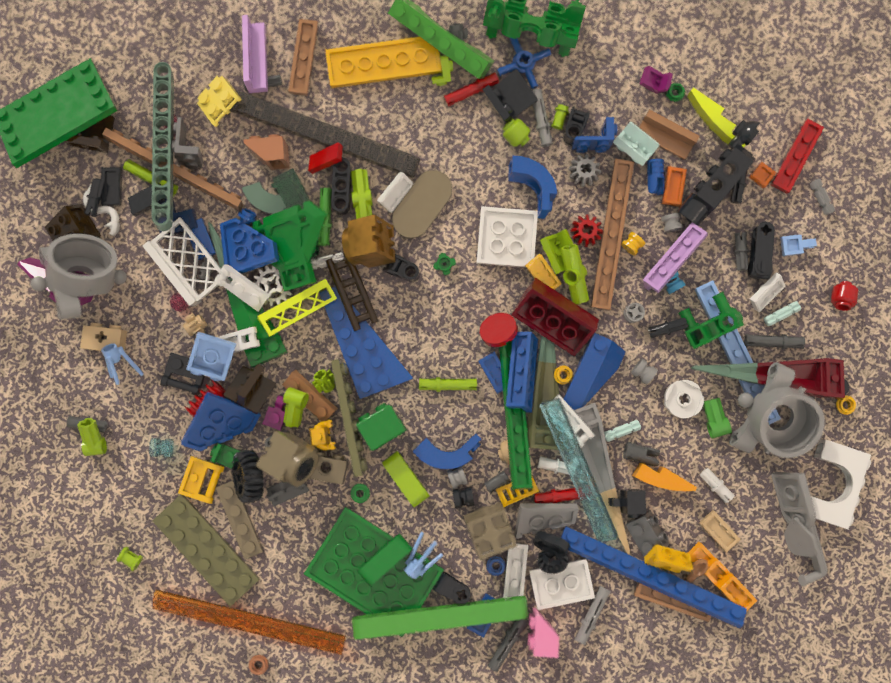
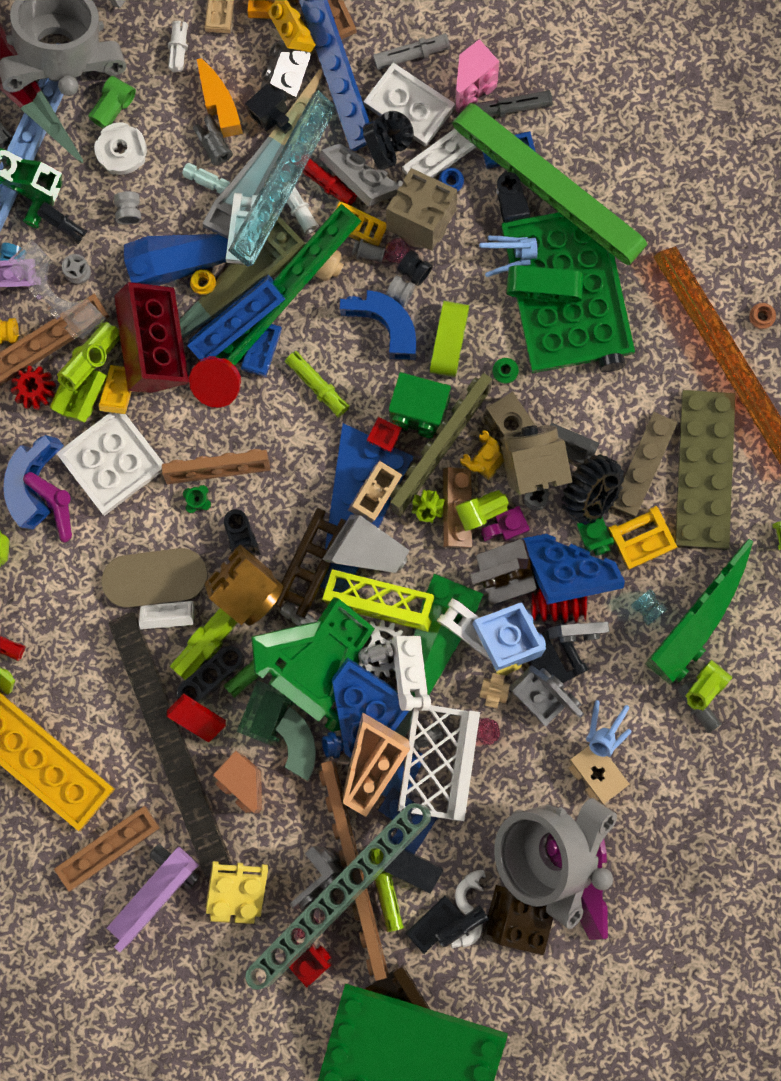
camera: 125 degrees left, 5 degrees down
(128, 466) = (697, 625): none -> green wedge
(146, 108) = (311, 964): none -> red bracket
(166, 345) = (544, 695): none -> flat silver bracket
(185, 392) = (568, 633): none -> plate
(213, 225) = (373, 763): none -> light nougat wedge
(269, 279) = (376, 653): none -> light grey piece
(310, 555) = (611, 362): none -> black tile
(330, 325) = (366, 547): none -> light grey slope
(354, 357) = (375, 492): none -> tan brick
(383, 393) = (384, 434): none -> red tile
(447, 295) = (215, 467): none -> medium nougat plate
(479, 499) = (396, 250): none -> clear pink plate
(511, 189) = (56, 500): none -> magenta piece
(601, 287) = (34, 266): none -> clear arch

